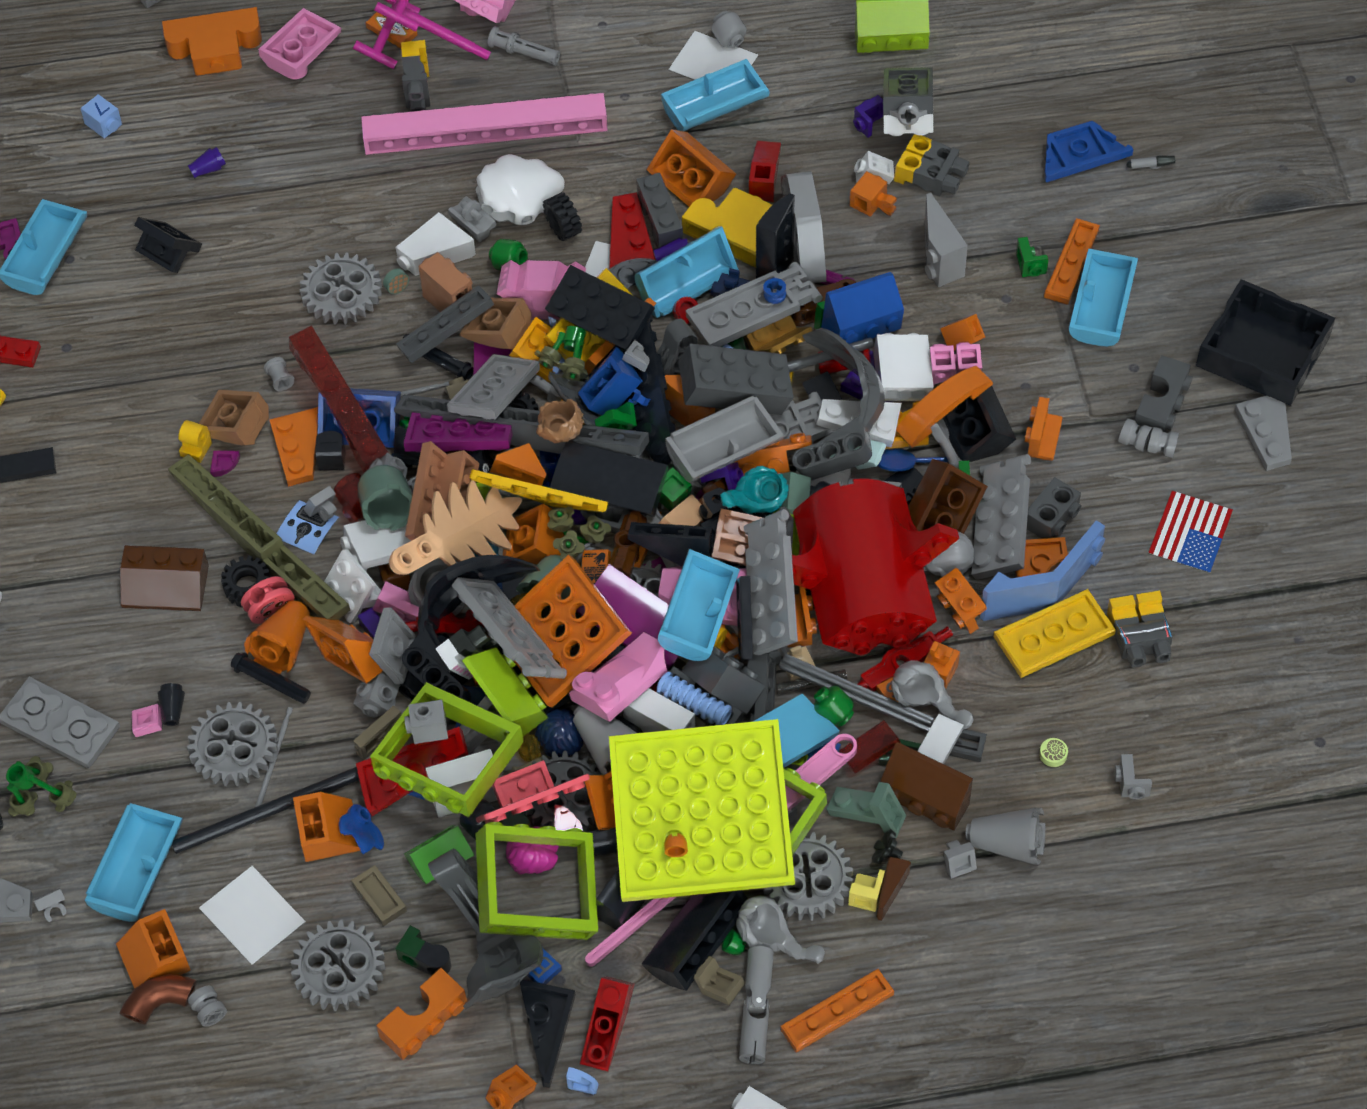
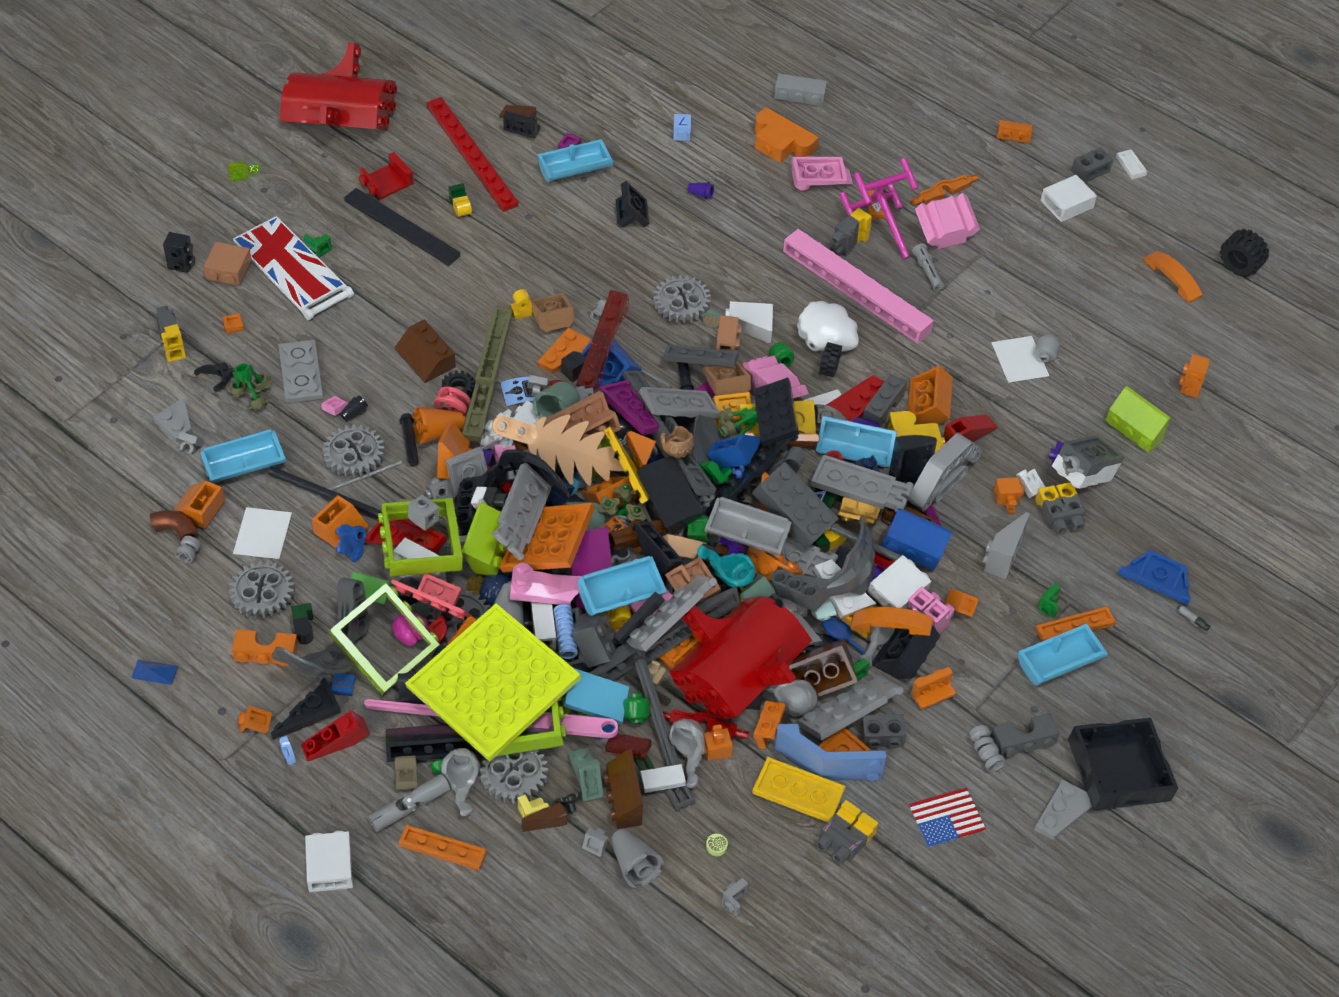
camera: 45 degrees right, 5 degrees down
(223, 462) = (523, 328): magenta tile -> none
(379, 895) = (322, 579): dark tan tile -> none
(472, 218) = (787, 323): light grey hips -> none
(636, 356) = (760, 448): light grey tile -> none
(675, 845) = (456, 682): orange hinge -> none
(713, 95) = (992, 372): medium azure container -> none
(774, 297) = (878, 490): blue bush -> none

